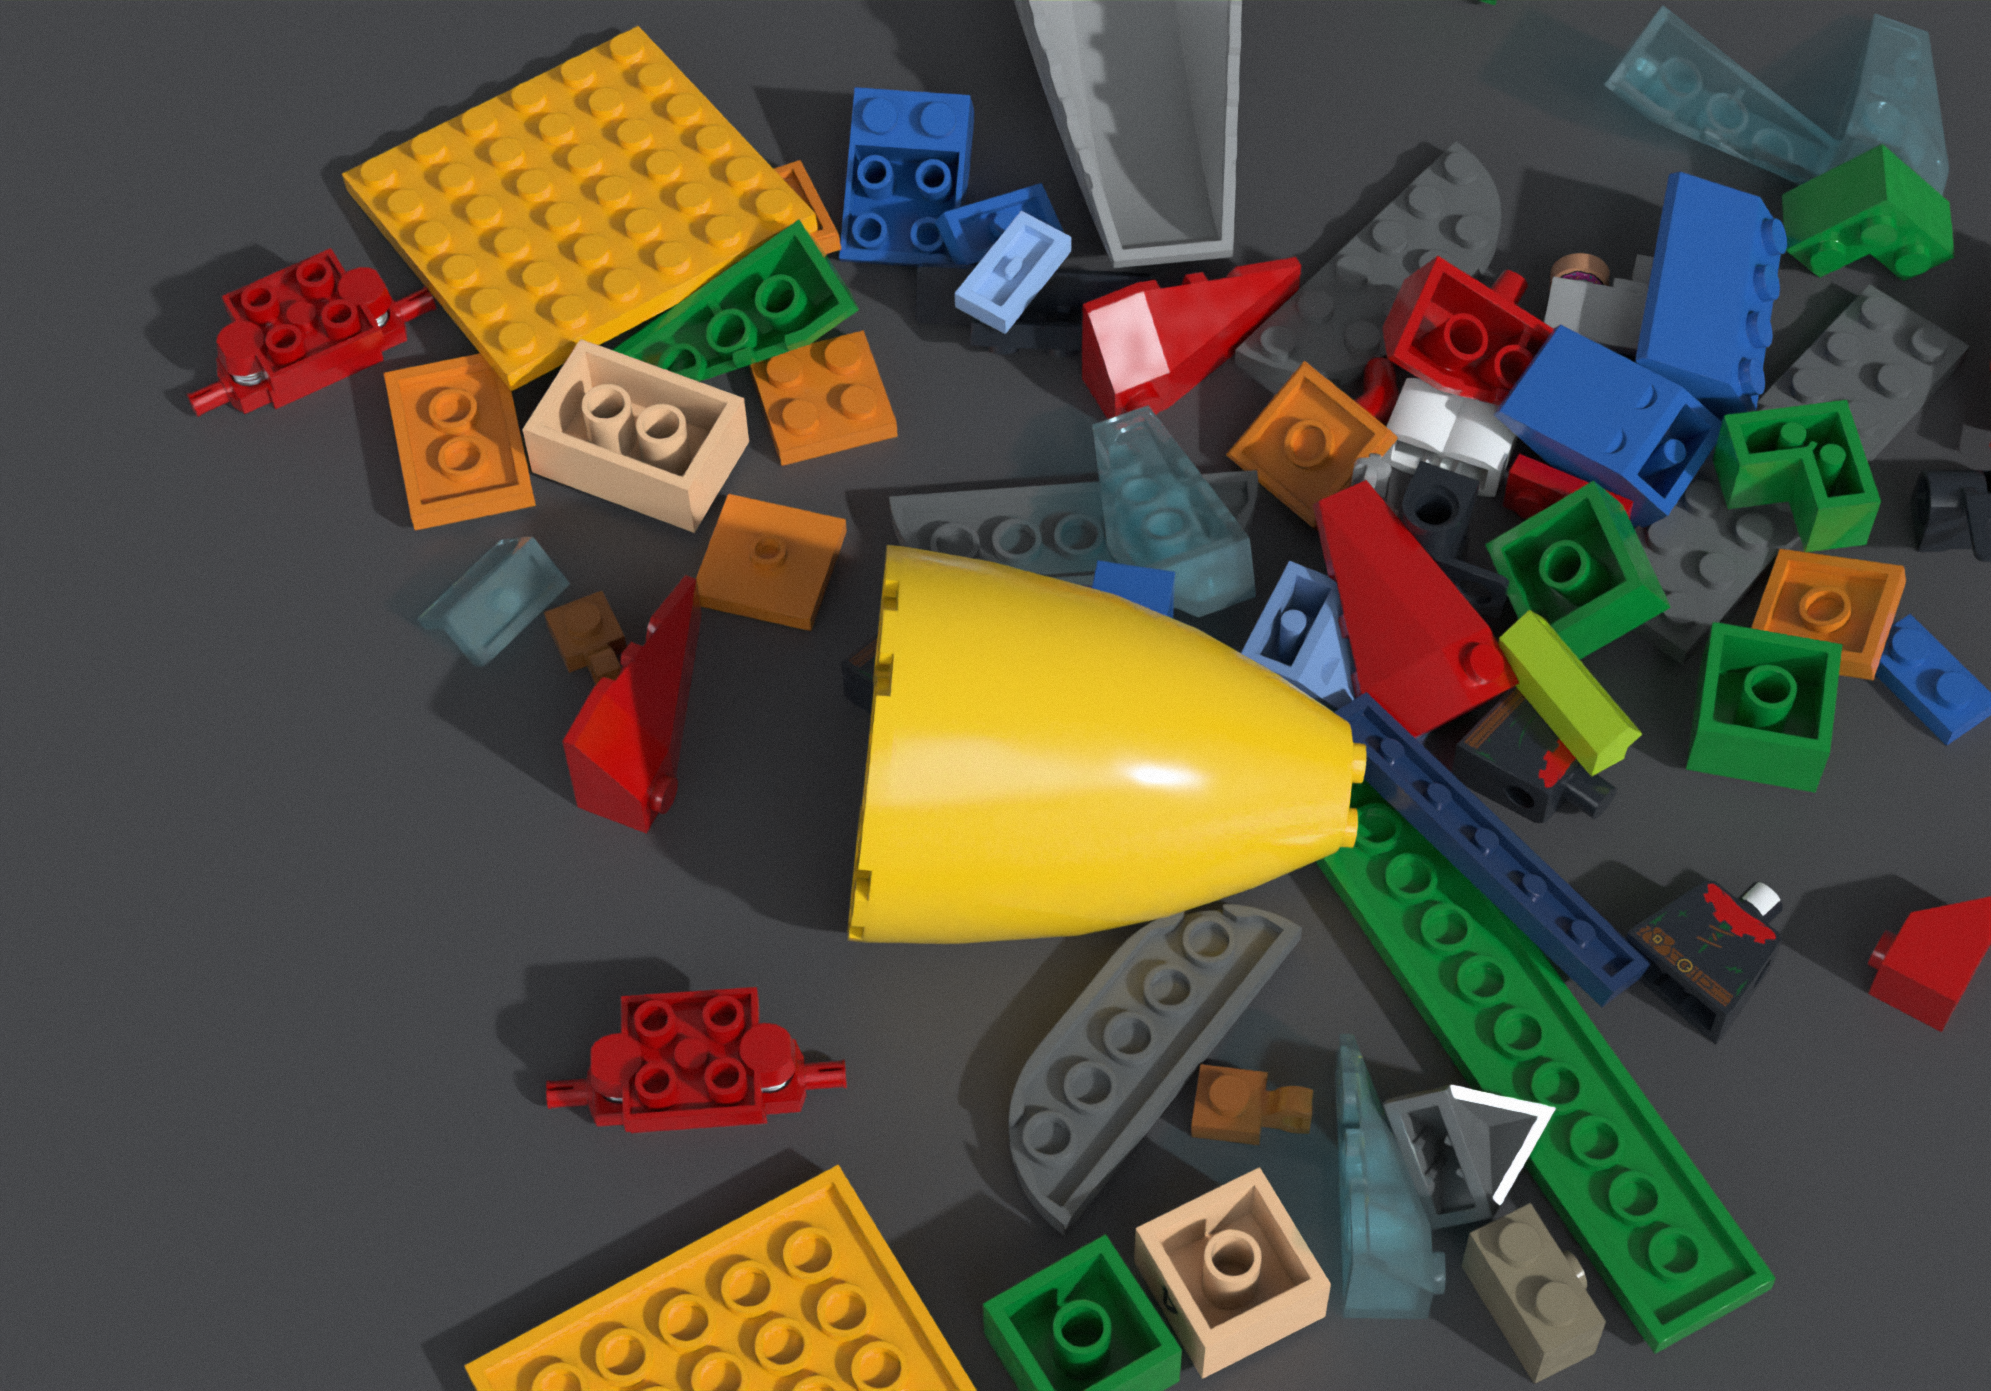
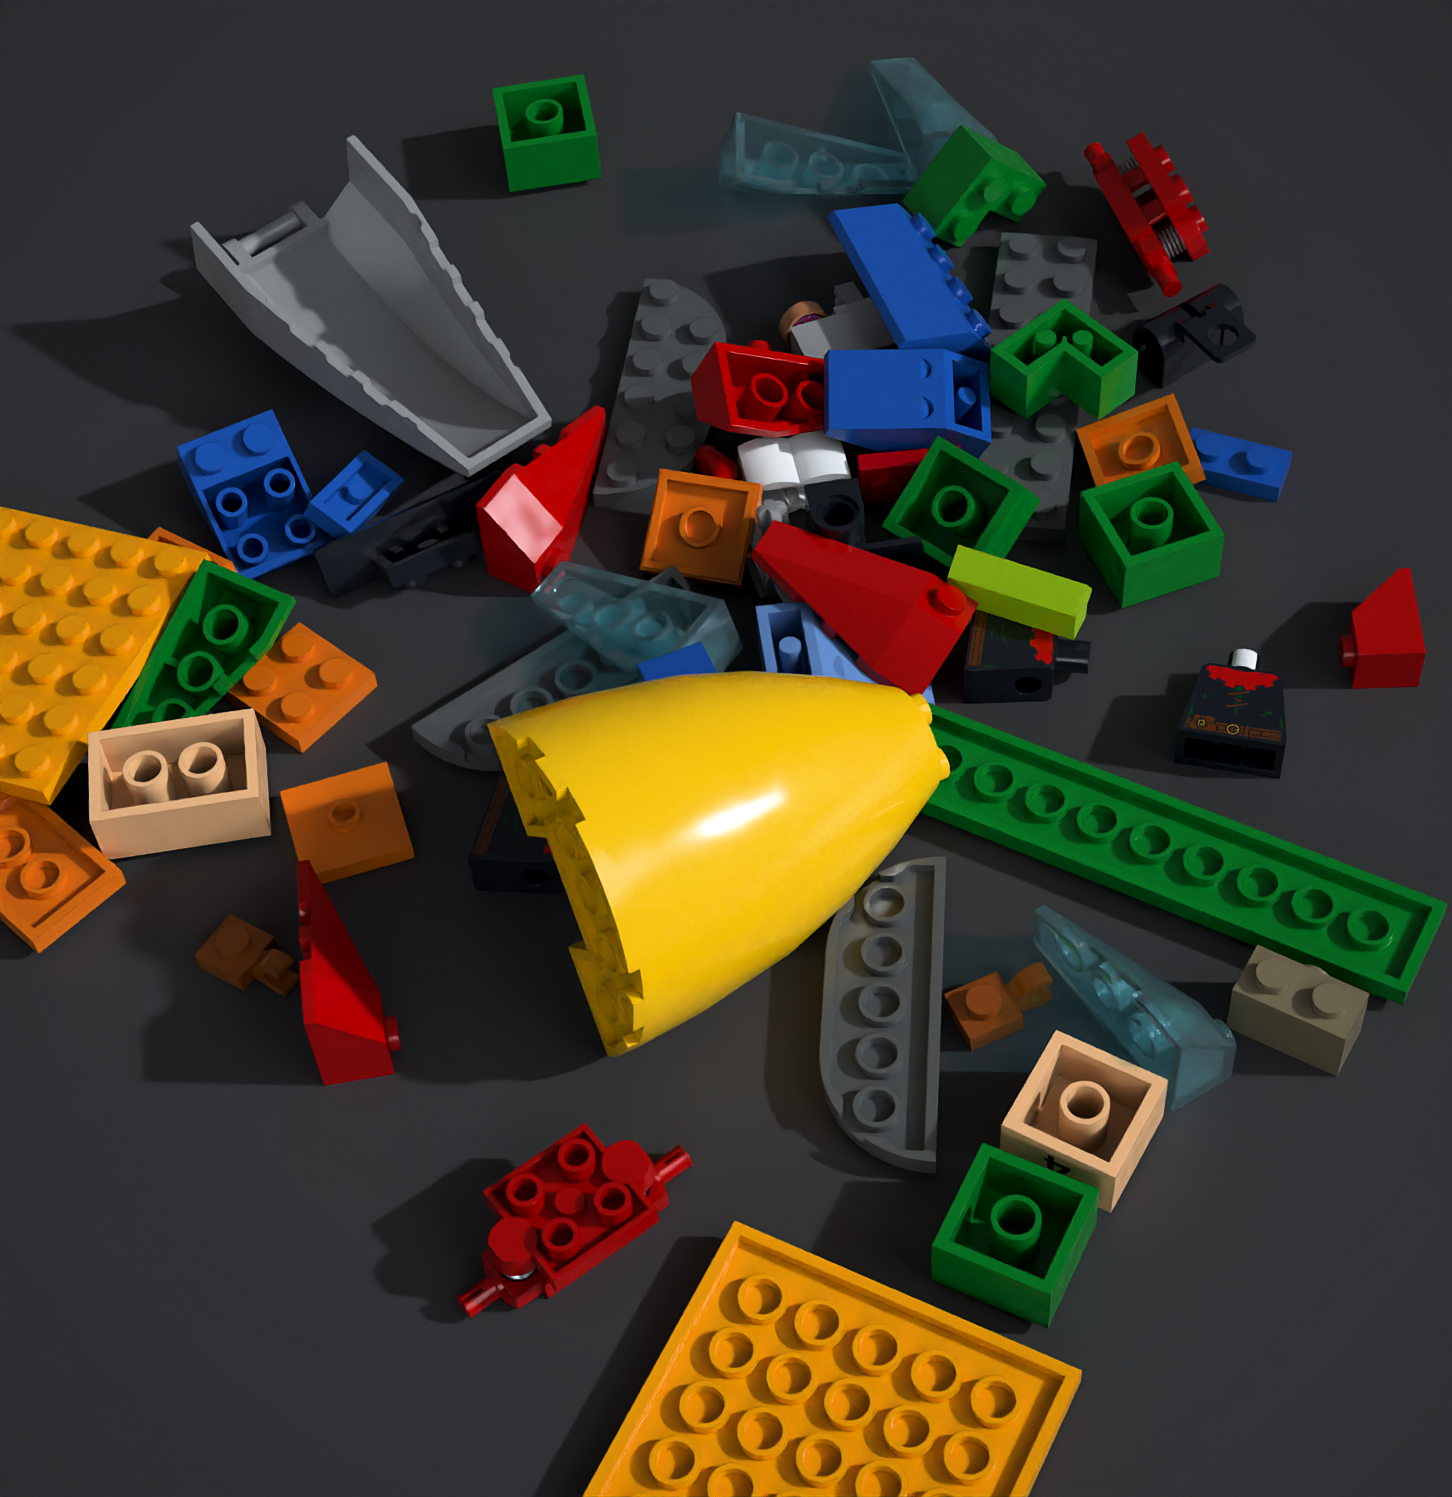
camera: 30 degrees left, 5 degrees down
(496, 598) = (145, 965): clear light blue panel -> none
(1013, 272) = (396, 516): light blue plate -> none
(1464, 1148) = (1179, 935): dark grey slope -> none
(1492, 855) = (1054, 731): dark blue plate -> none

